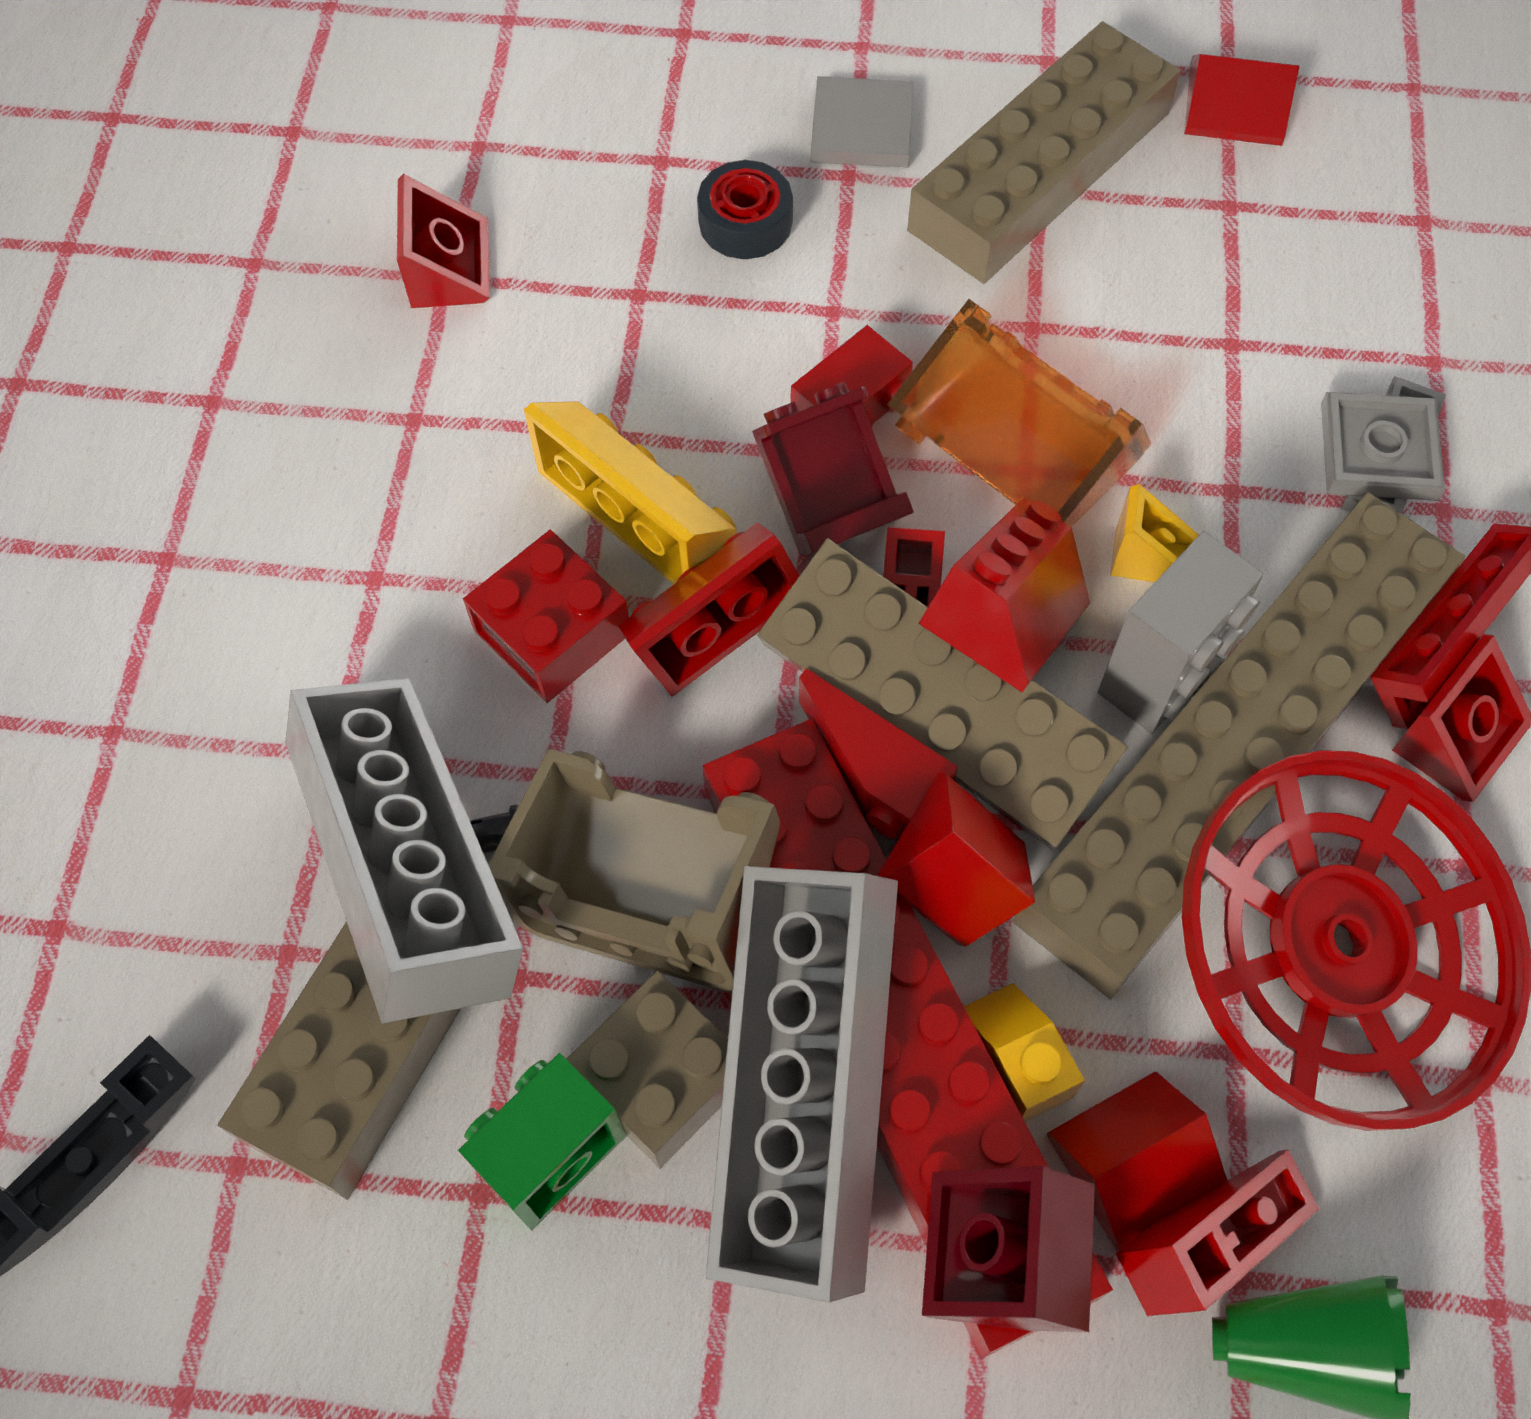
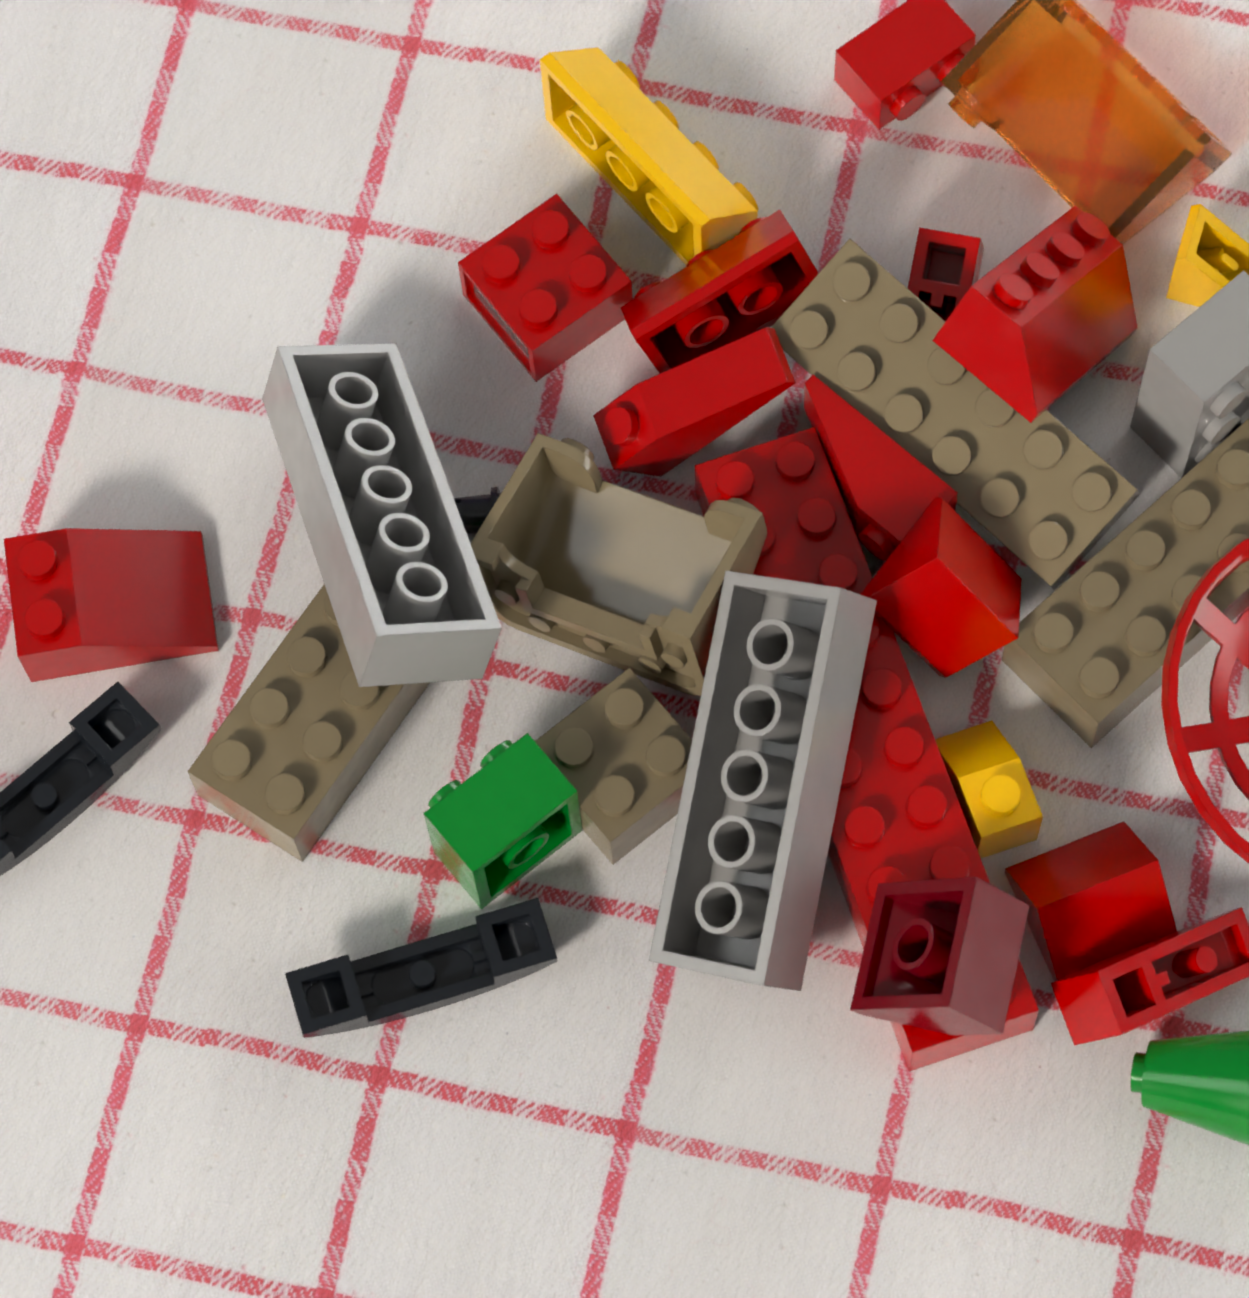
camera: 10 degrees right, 5 degrees up
(138, 952) = (108, 599): none -> red slope
(469, 1313) = (422, 974): none -> black slope
(694, 707) = (692, 404): none -> red slope
(828, 469) = (867, 153): dark red panel -> none

